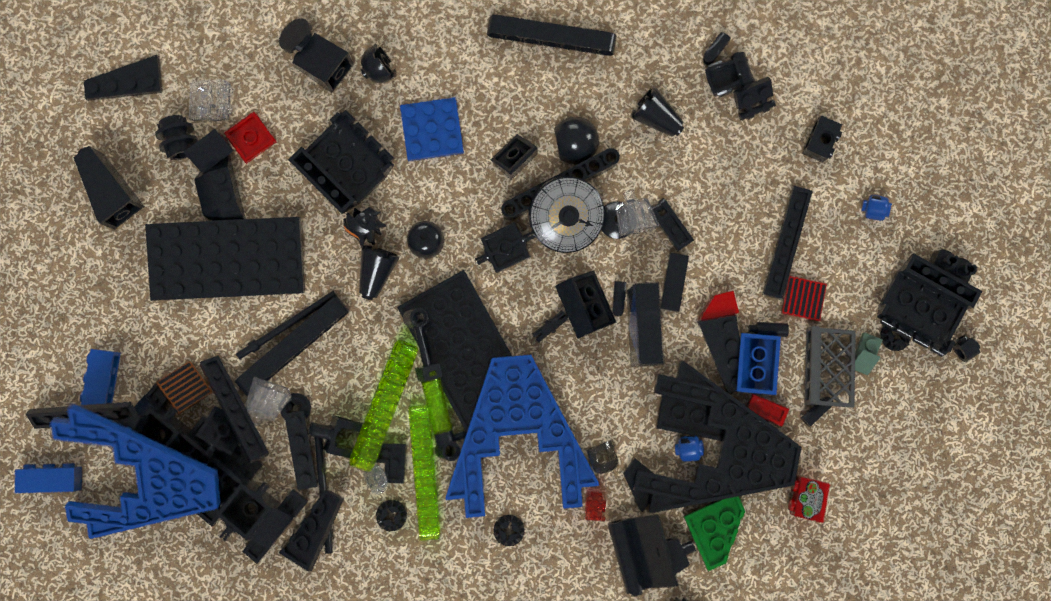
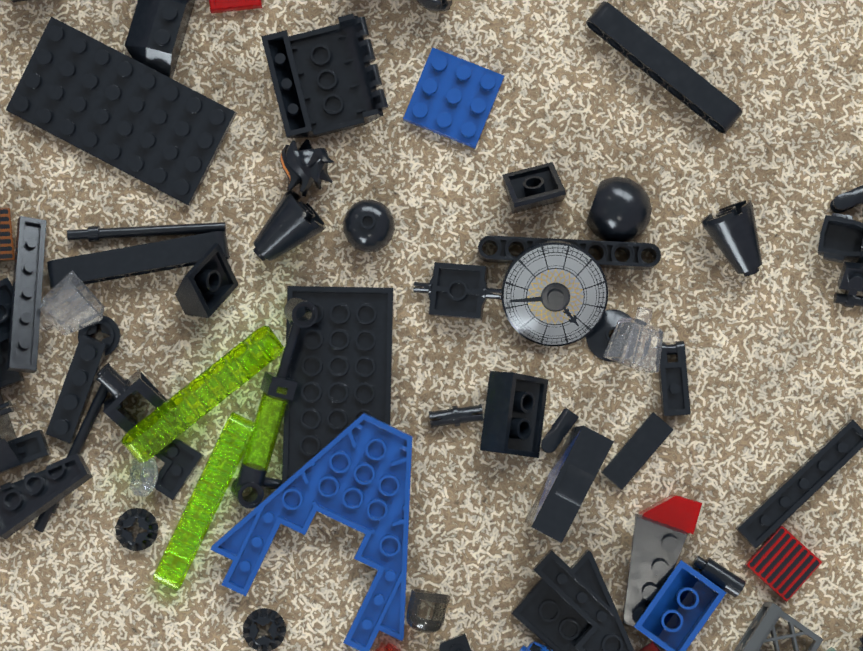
camera: 35 degrees right, 0 degrees up
(345, 335) = (206, 284): none -> black slope

